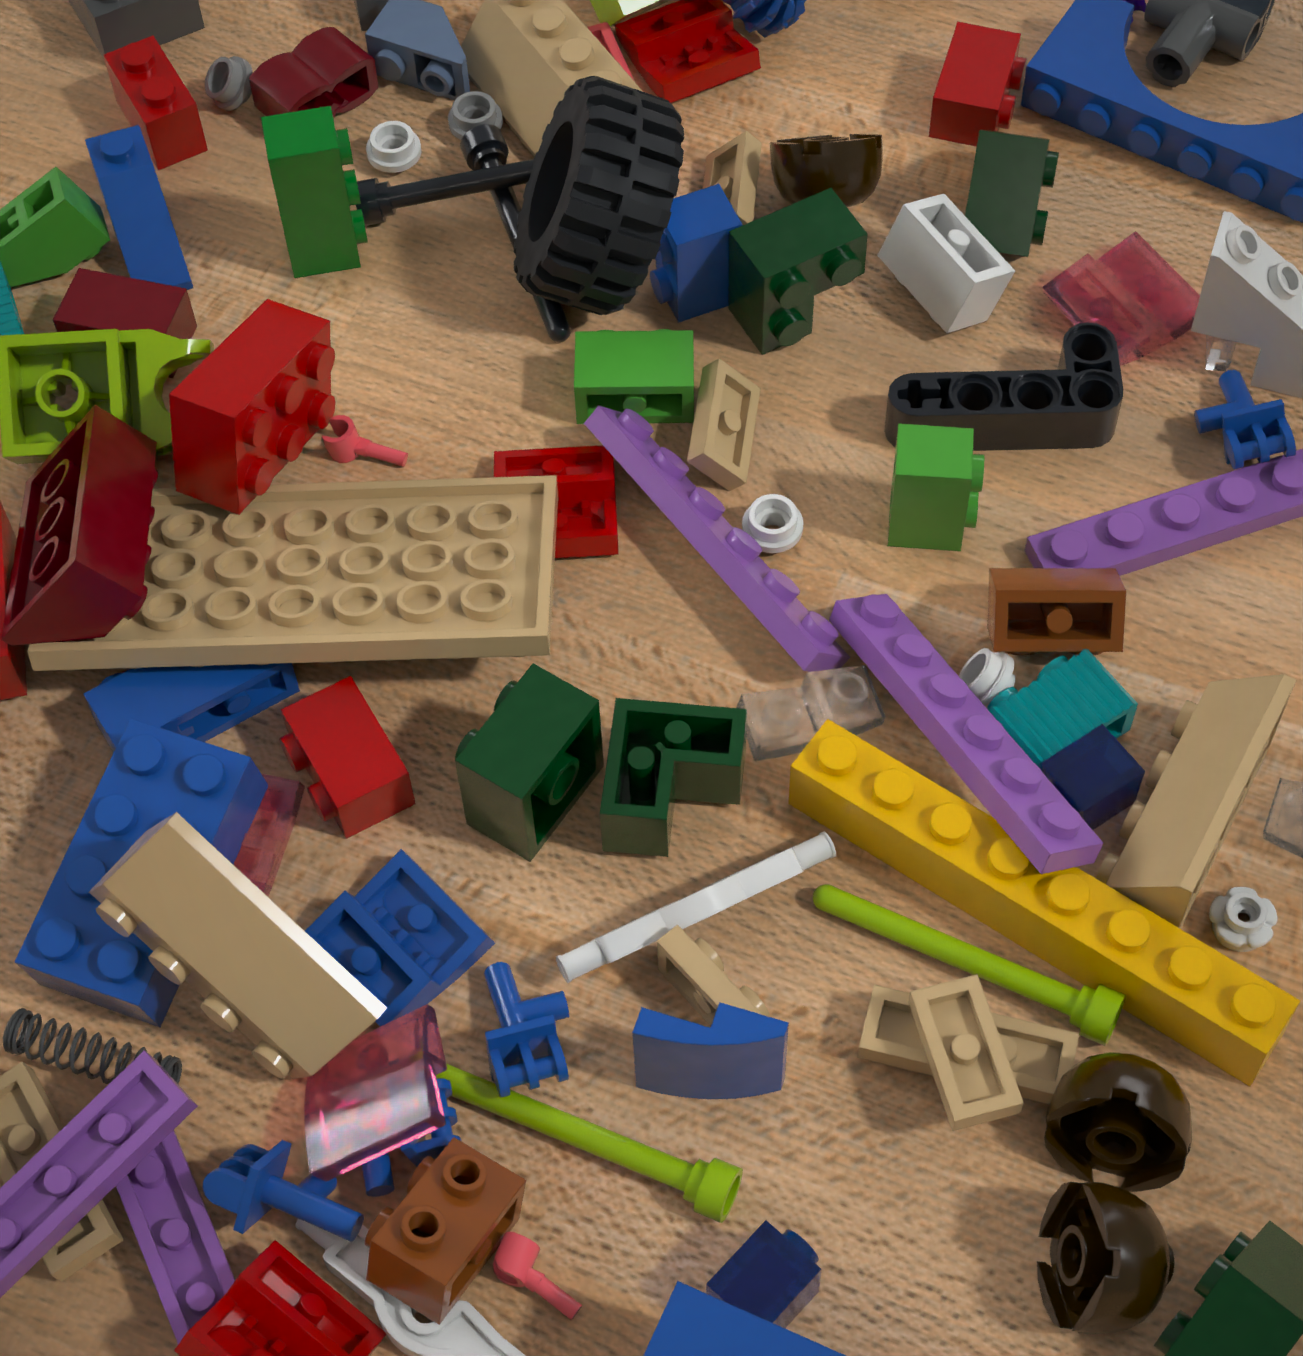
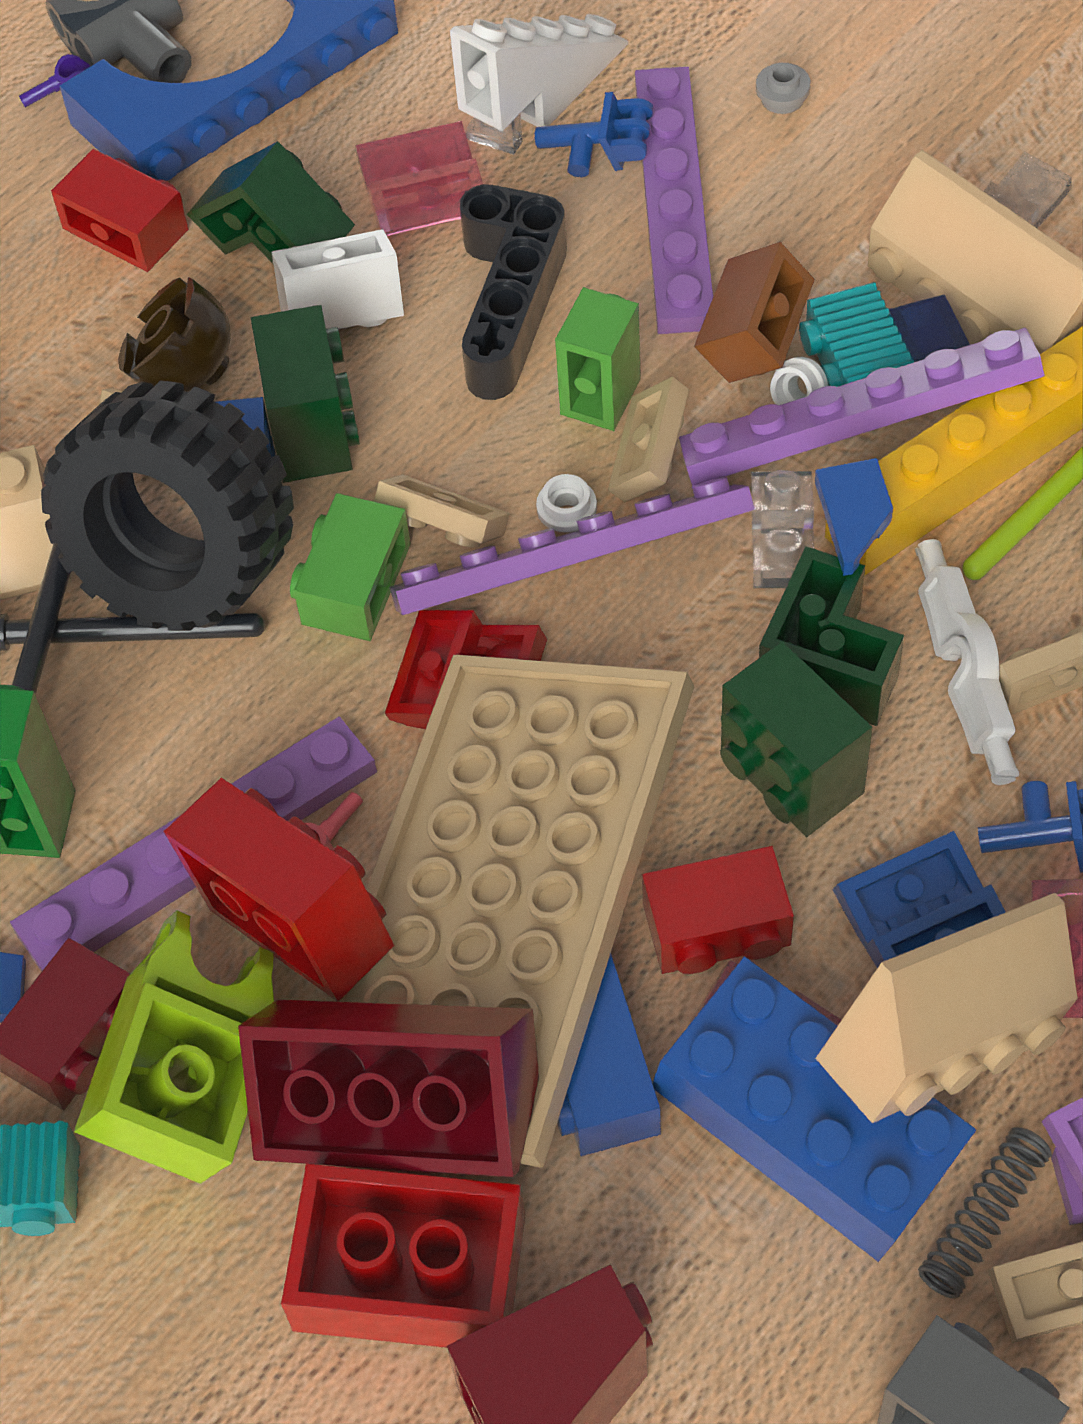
camera: 70 degrees left, 0 degrees up
(359, 380) = (151, 873): none -> medium lavender plate
(796, 735) = (854, 508): none -> blue tile
(893, 567) = (649, 440): none -> tan plate

